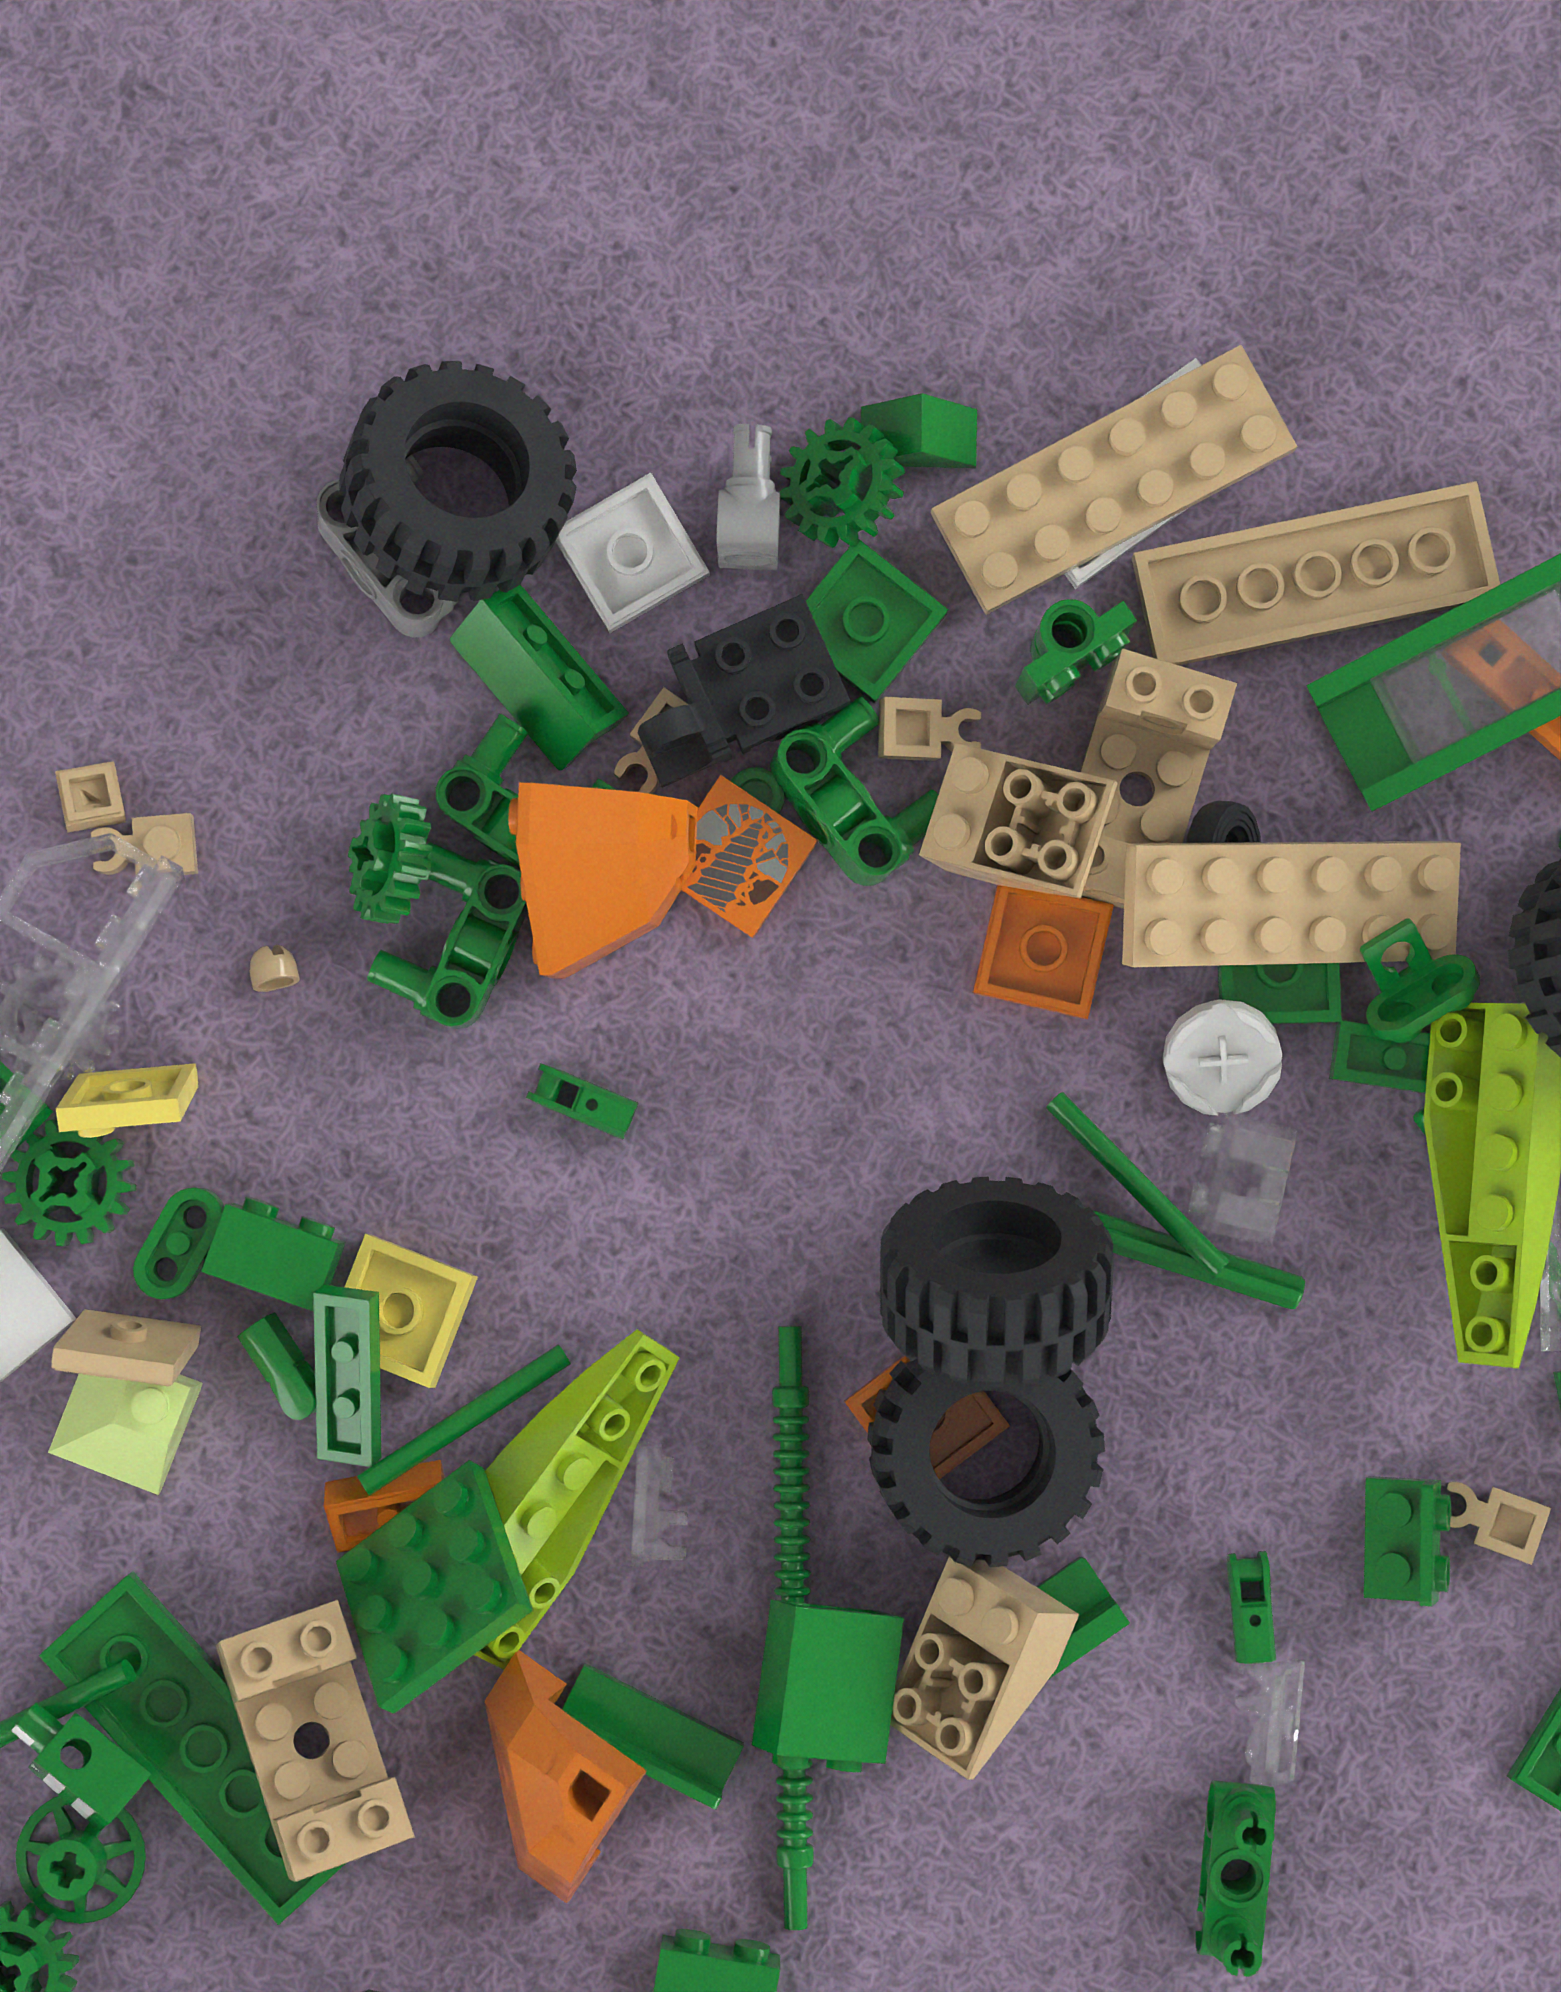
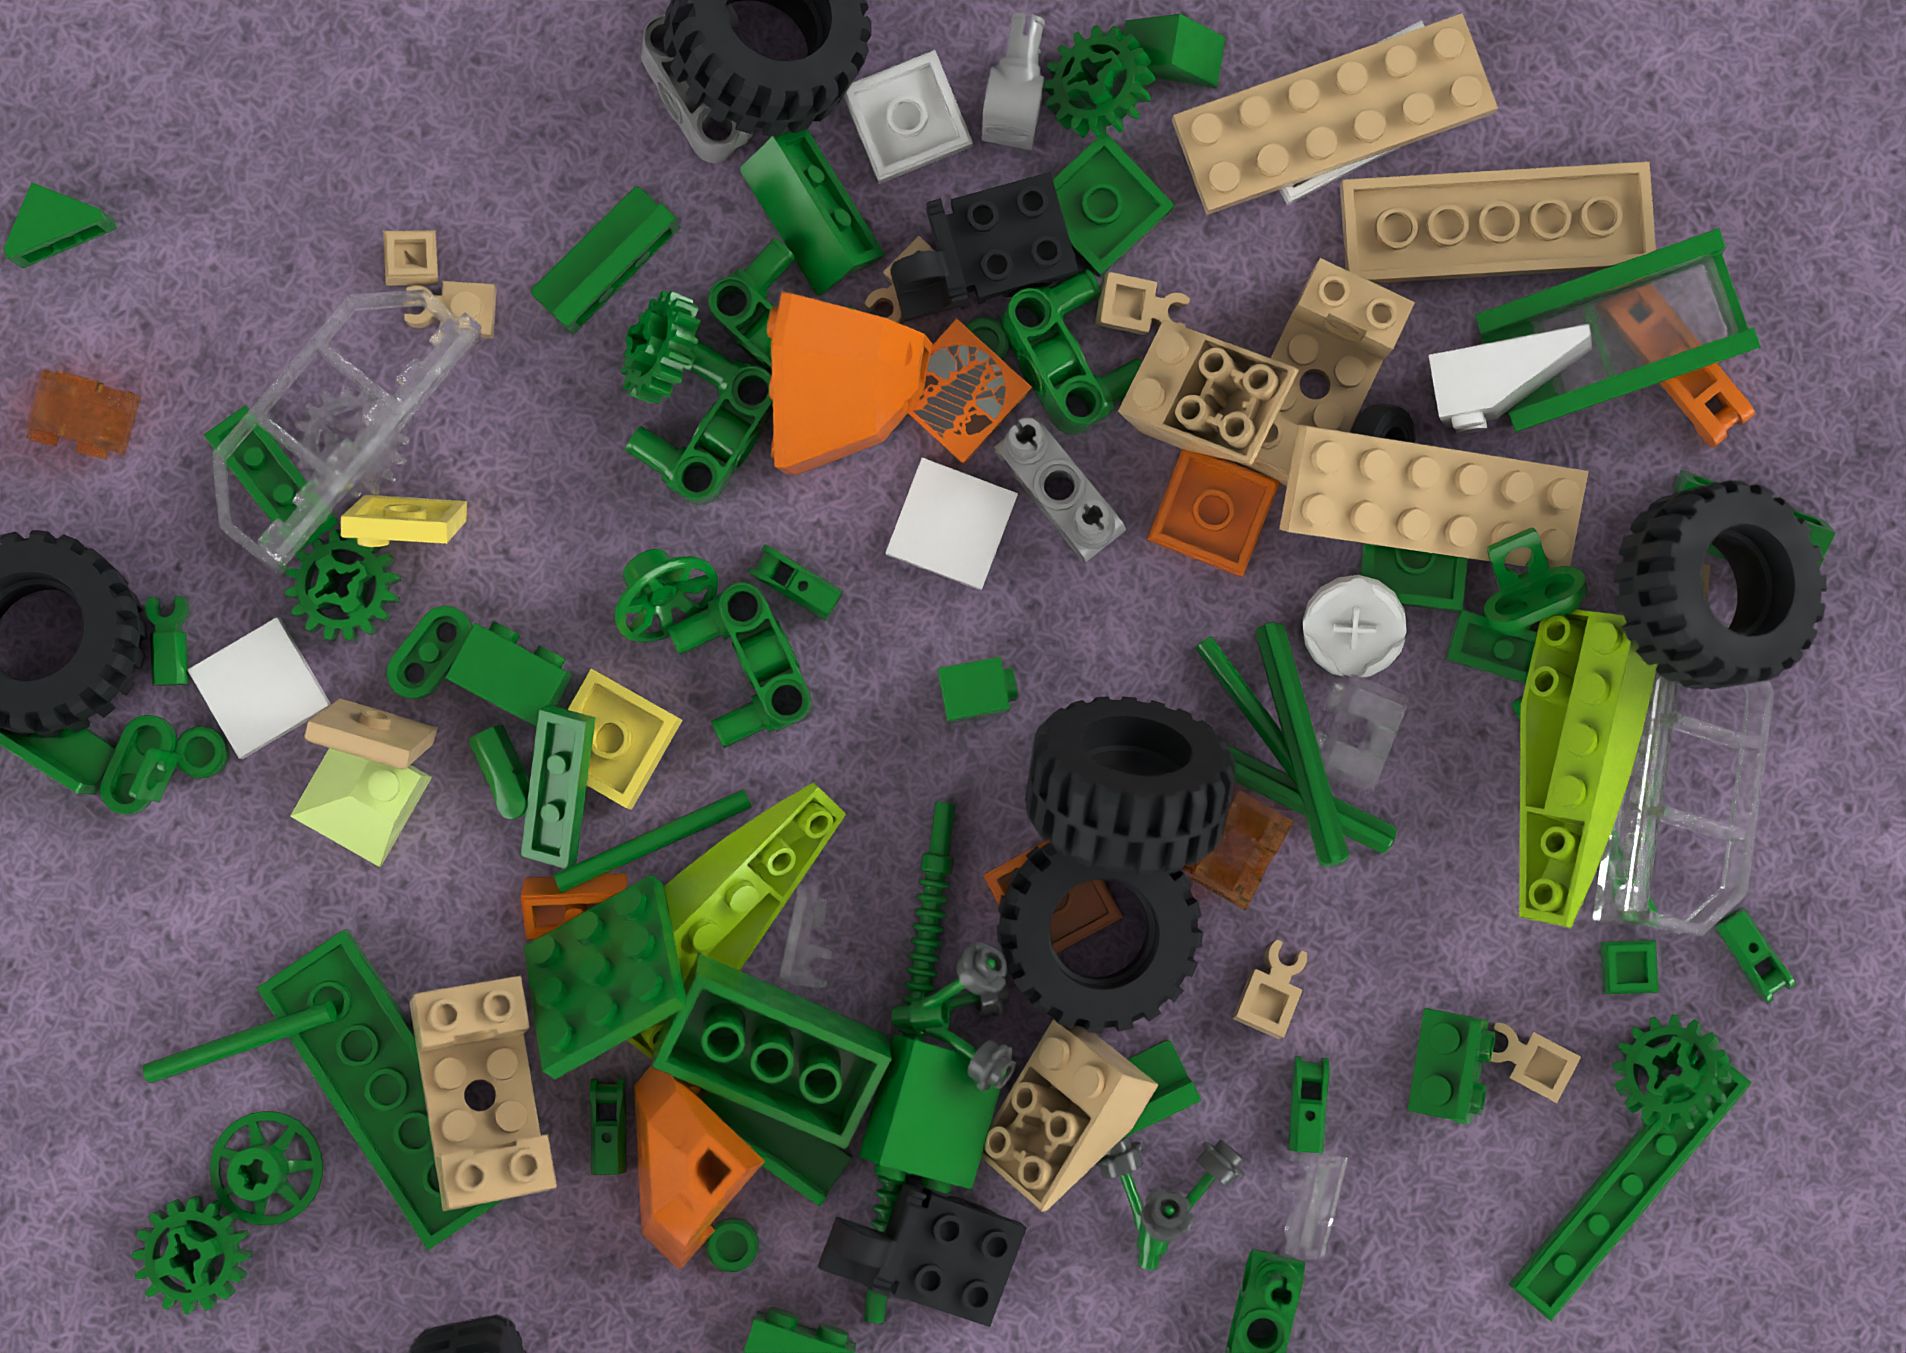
camera: 10 degrees right, 0 degrees up
(107, 1772) = (286, 1107): green torso -> none
(273, 969) = (545, 429): tan hinge -> none
(311, 765) = (605, 259): none -> green panel
(428, 1130) = (658, 588): none -> green wheel
(463, 1760) = (608, 1135): none -> green bar
(557, 1189) = (762, 654): none -> green piece
(623, 1864) = (732, 1245): none -> green tile
(637, 1642) = (773, 1051): none -> green brick
(749, 1008) = (951, 524): none -> white tile
(807, 1196) = (977, 690): none -> green brick
(851, 1843) = (931, 1253): none -> black plate
(864, 1526) = (982, 974): none -> plant
(897, 981) = (1037, 458): none -> light grey piece
(1057, 667) = (1298, 253): green plate -> none
(1108, 1759) = (1166, 1214): none -> dark grey plant
(1139, 1327) = (1245, 850): none -> clear orange cylinder
(1183, 1202) = (1302, 745): none -> green axle
(1187, 1493) = (1268, 997): none -> tan plate
(1338, 754) = (1494, 377): none -> white slope

